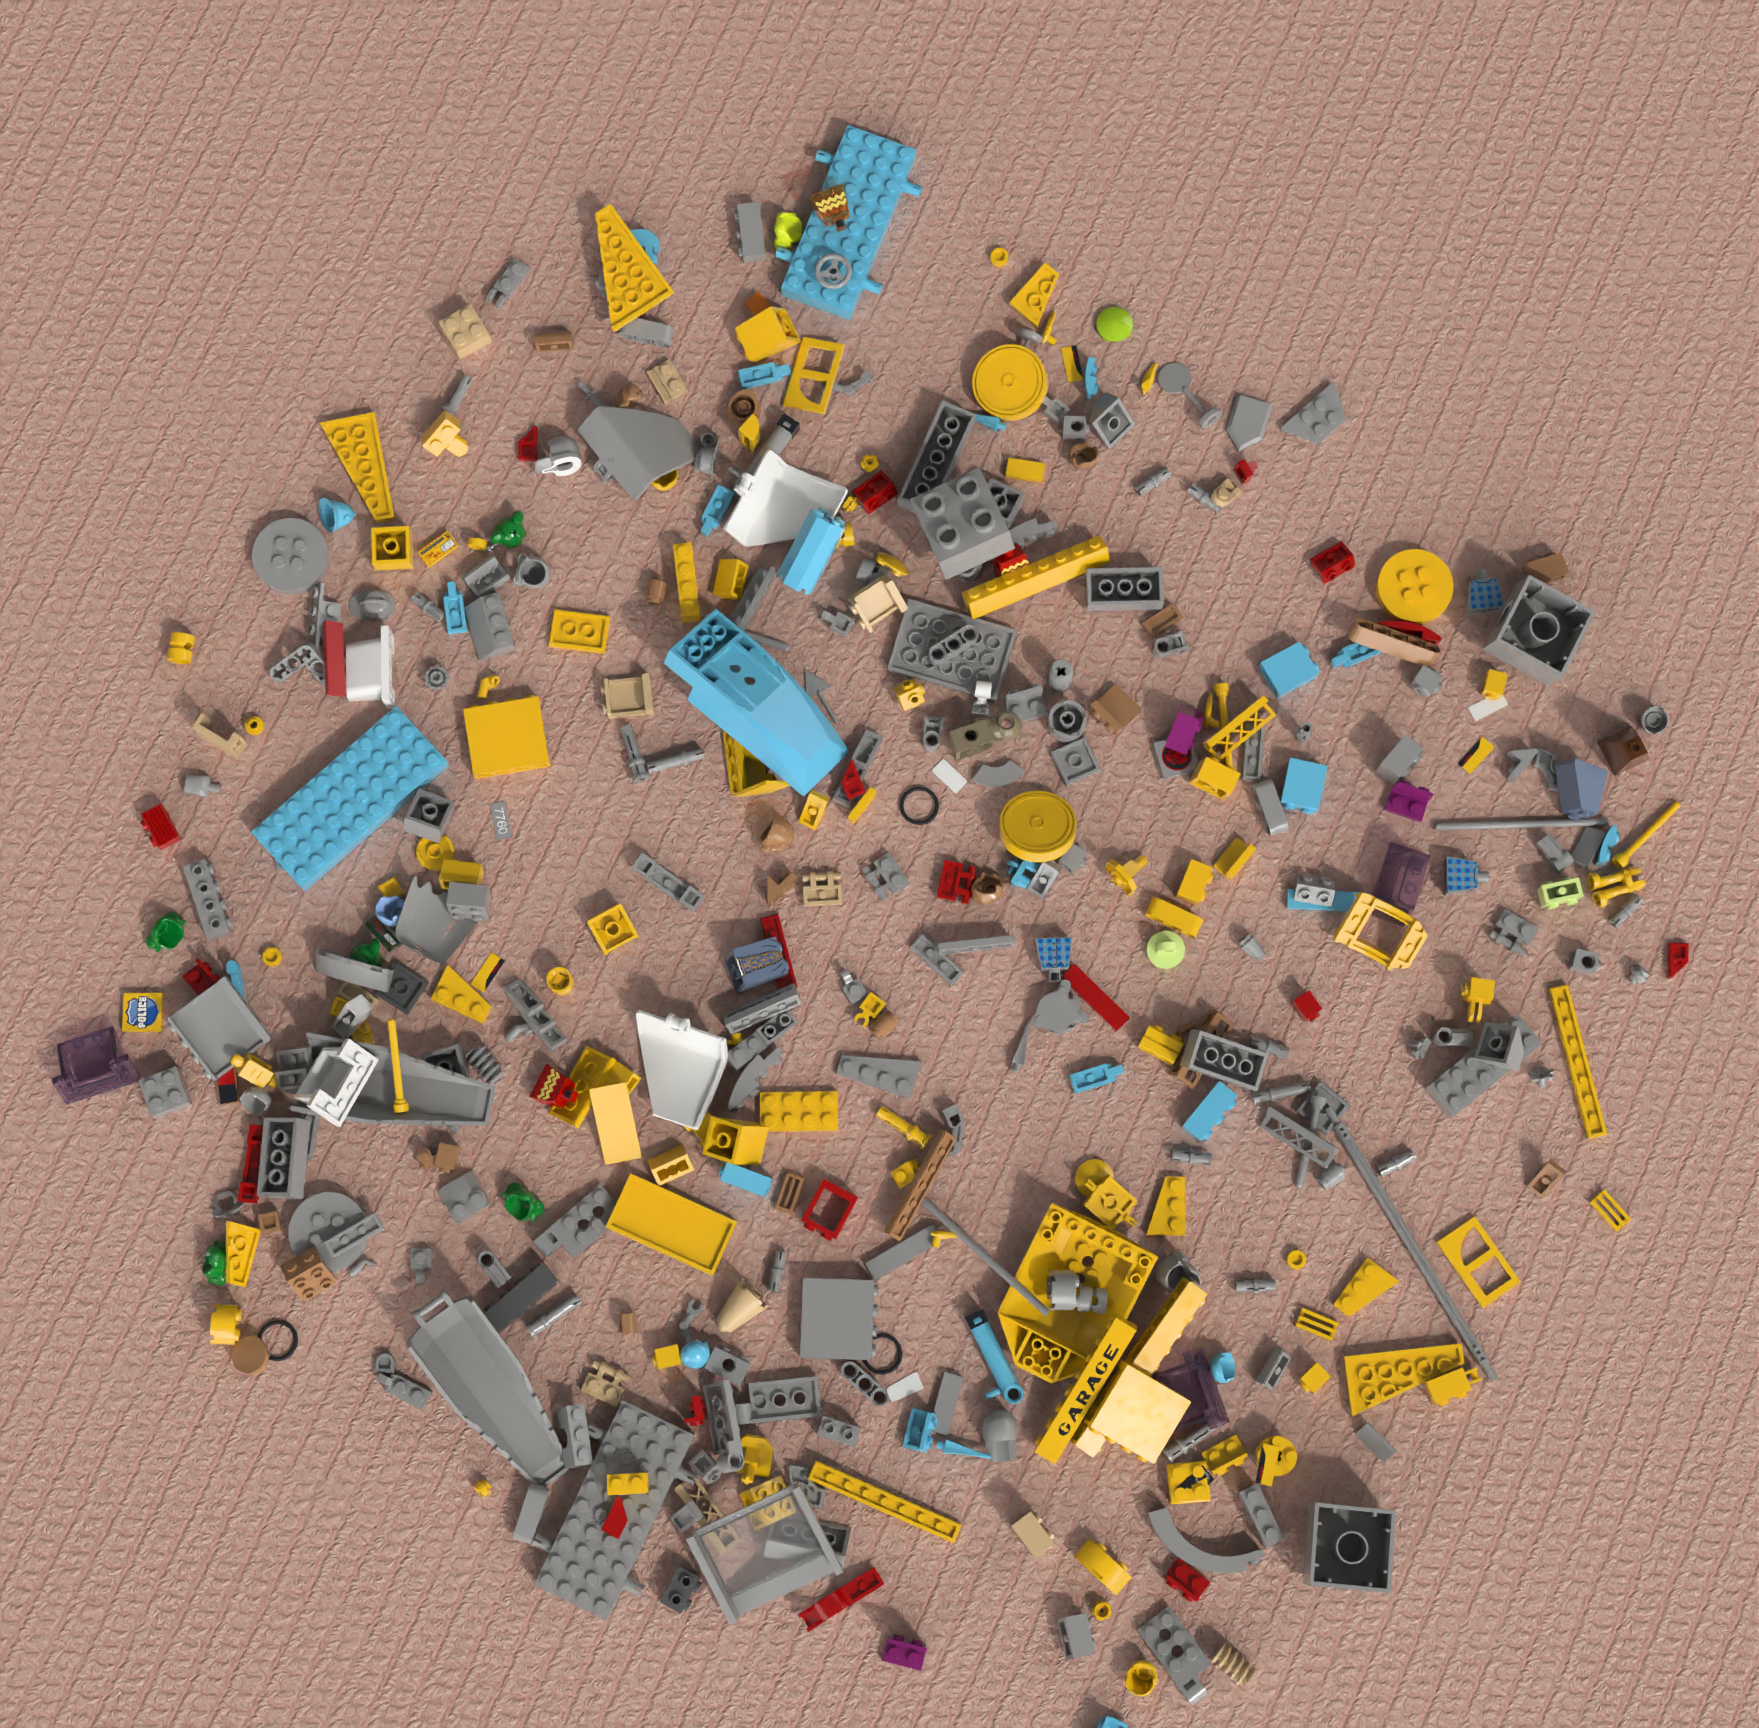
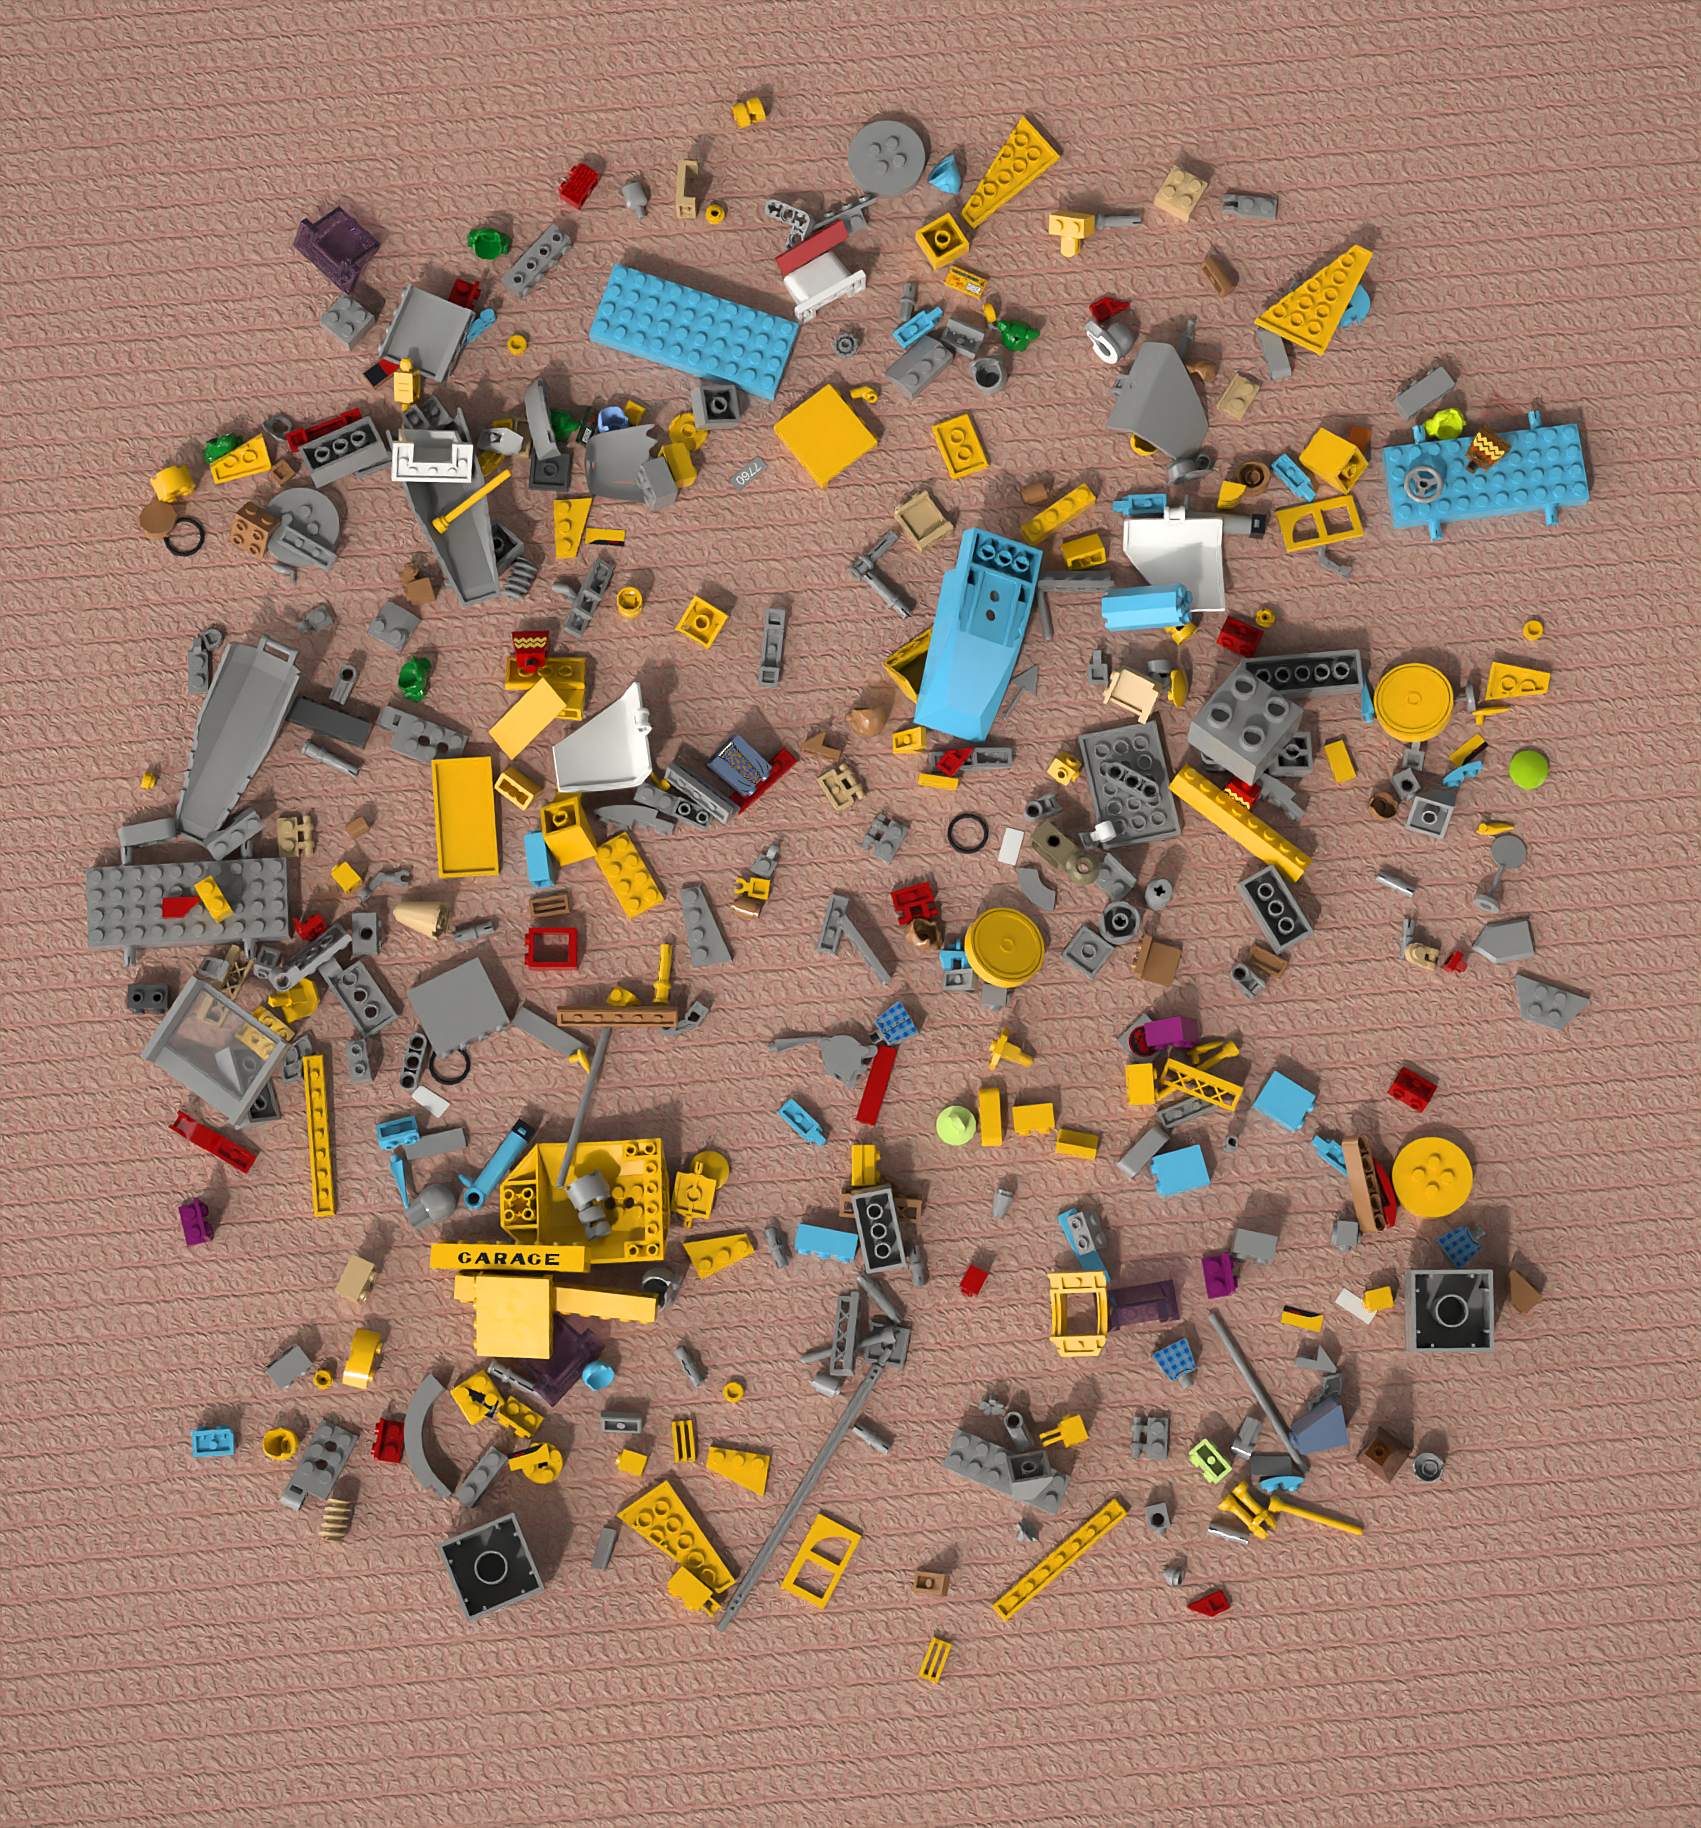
camera: 60 degrees right, 0 degrees up
(142, 1012) = (408, 263): tile -> none
(255, 1100) = (382, 401): light grey hair -> none
(371, 605) = (882, 254): light grey piece -> none
(695, 1354) = (360, 899): medium azure hair -> none
(849, 504) = (1215, 620): yellow plate -> none

